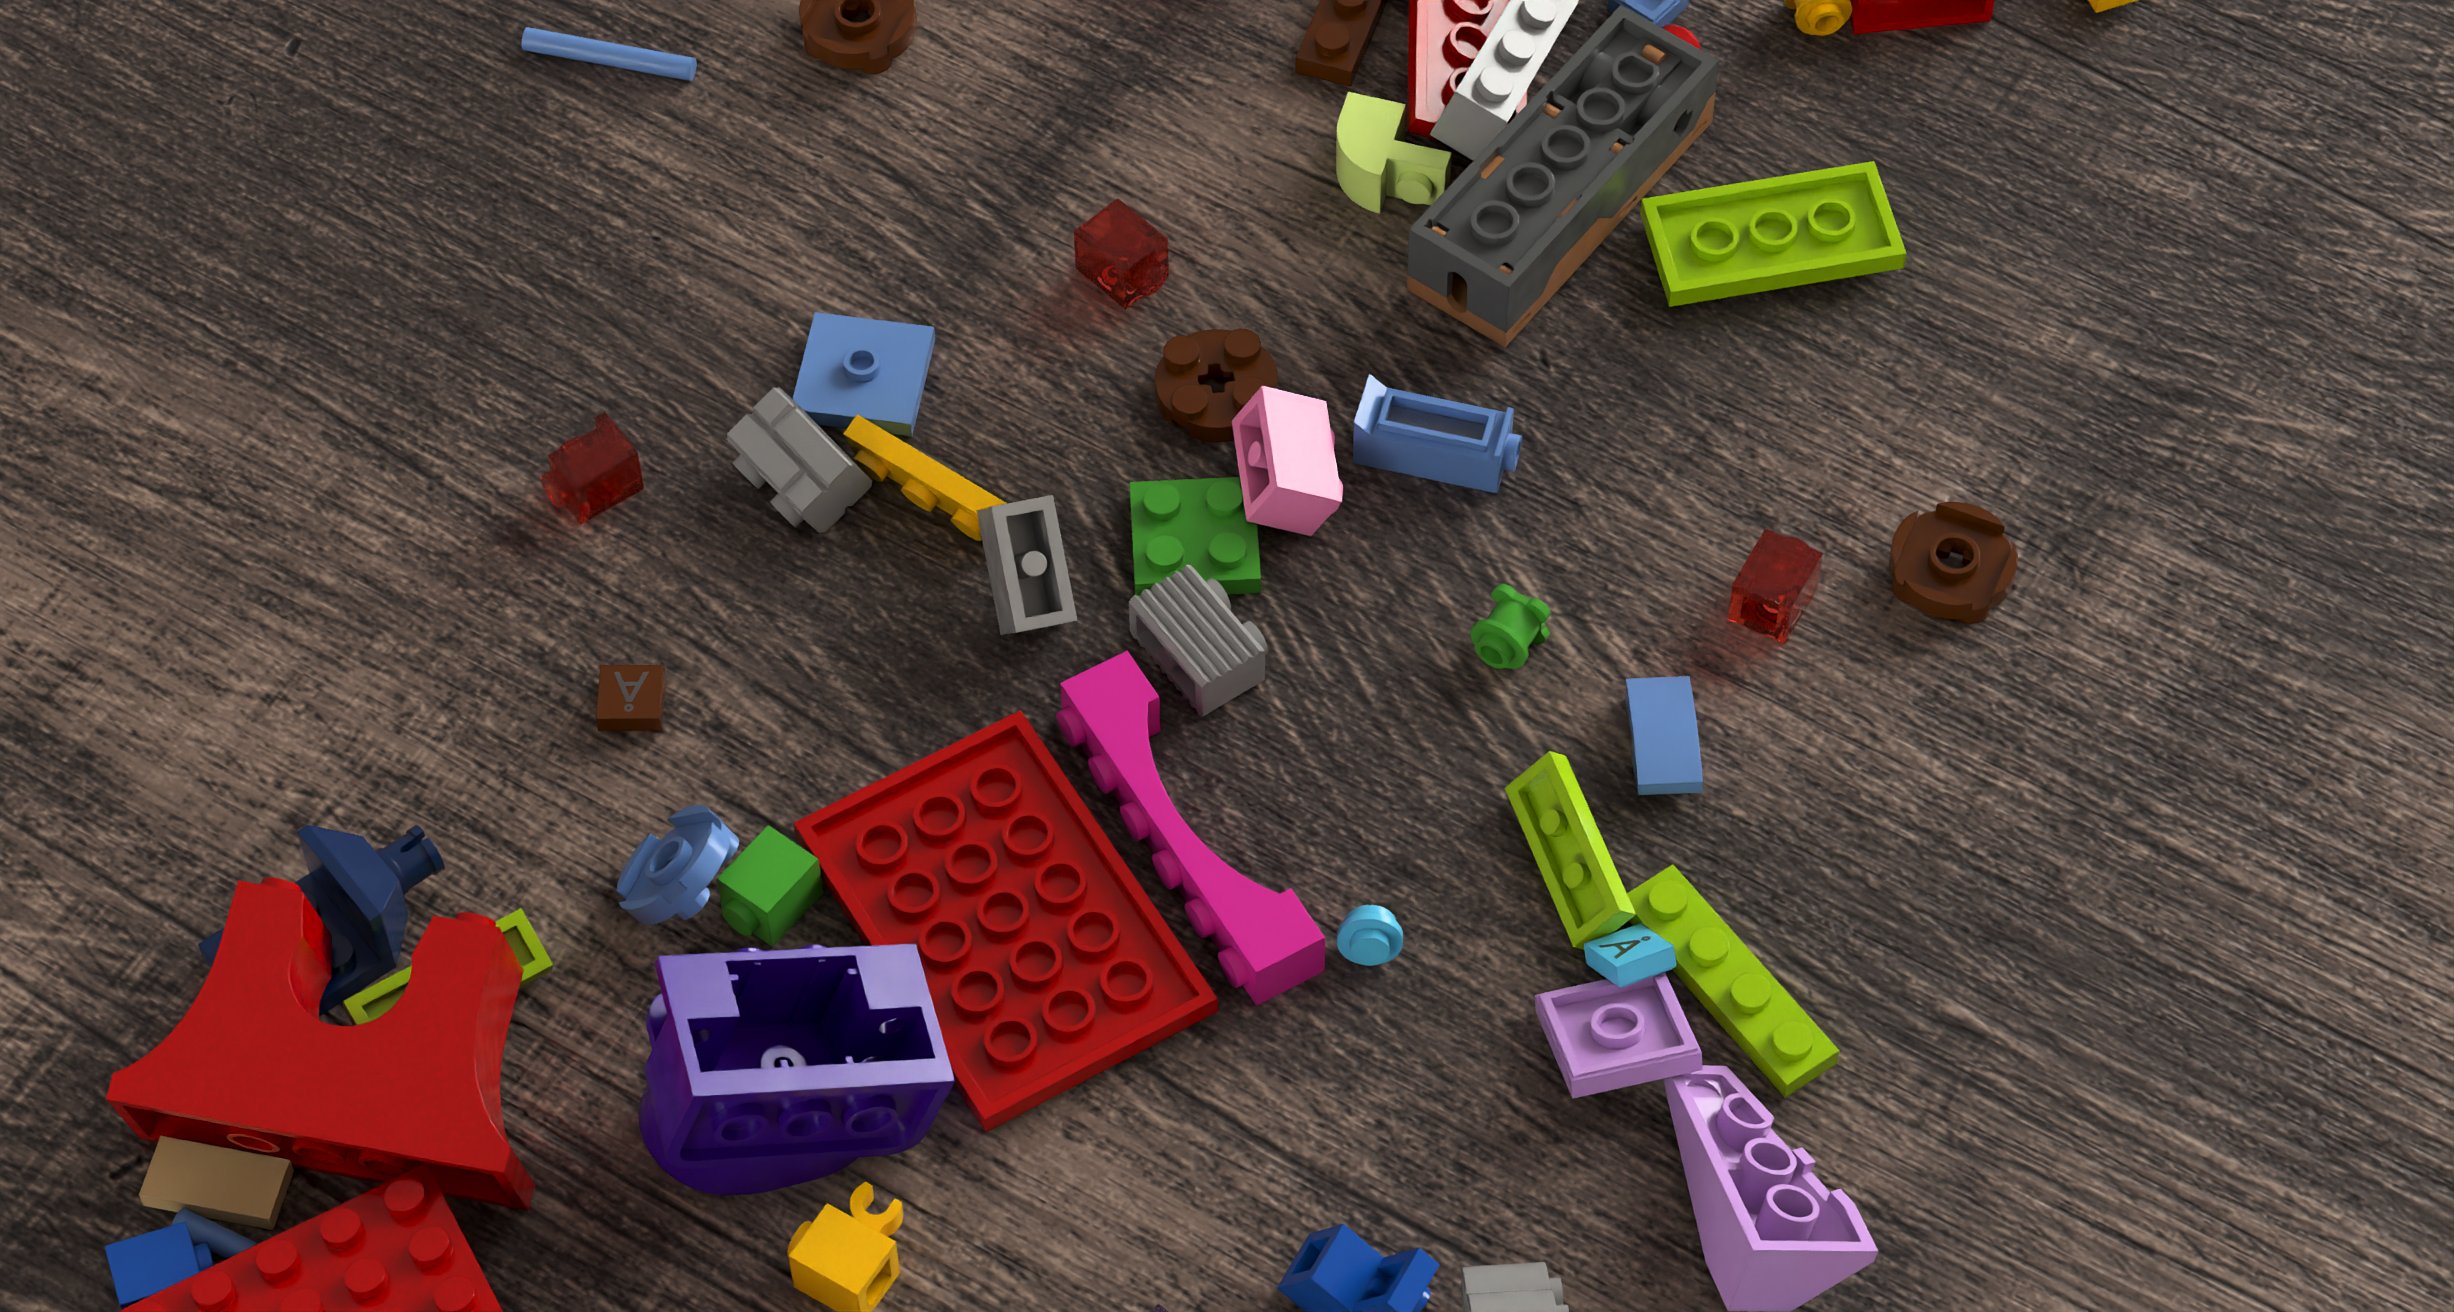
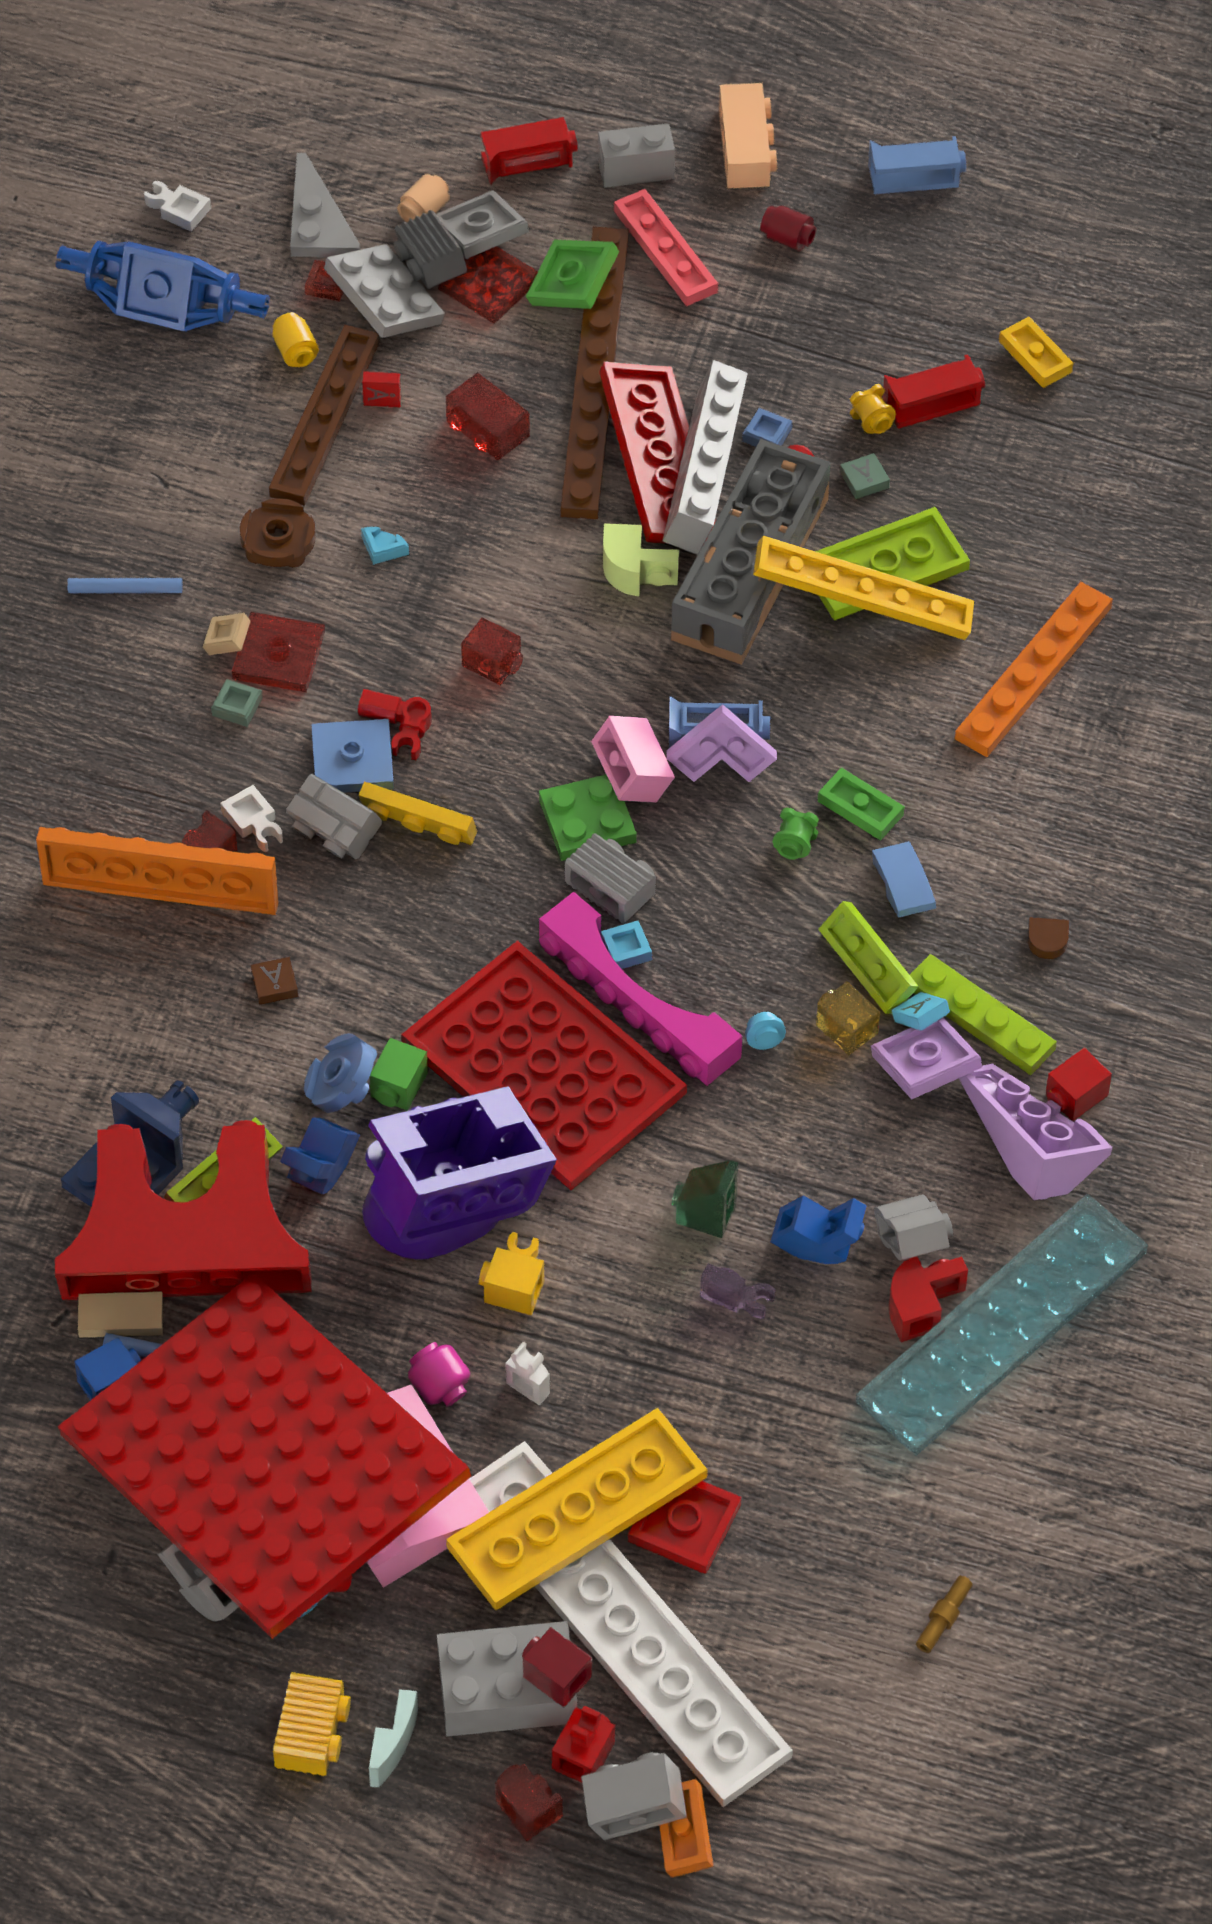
camera: 15 degrees left, 0 degrees up
(501, 490) = (158, 870): none -> orange plate
(603, 994) = (321, 1155): none -> blue brick
(678, 434) = (252, 814): none -> white plate
(716, 259) = (236, 702): none -> sand green tile
(732, 152) = (226, 634): none -> tan tile
(803, 195) = (279, 652): none -> clear red plate
(971, 329) = (413, 714): none -> red bar
(1013, 65) = (383, 545): none -> medium azure tile
(1026, 565) = (497, 852): light grey brick -> none
(1191, 753) = (627, 944): none -> medium azure plate
(1194, 1194) = (707, 1198): none -> clear green slope
(1205, 356) = (567, 702): reddish brown plate -> none
(1432, 455) = (721, 738): none -> lavender plate
(1508, 941) = (847, 1017): none -> clear yellow brick
(1628, 601) = (861, 803): none -> bright green plate
(1720, 263) = (863, 587): none -> yellow plate
(1775, 585) = (946, 777): clear red brick -> none
(1779, 95) = (864, 476): none -> sand green tile
(1854, 1130) = (1078, 1084): none -> red brick
(1873, 876) = (1048, 937): none -> reddish brown tile
(1946, 591) = (1046, 760): reddish brown plate -> none
(1964, 442) = (1033, 669): none -> orange plate

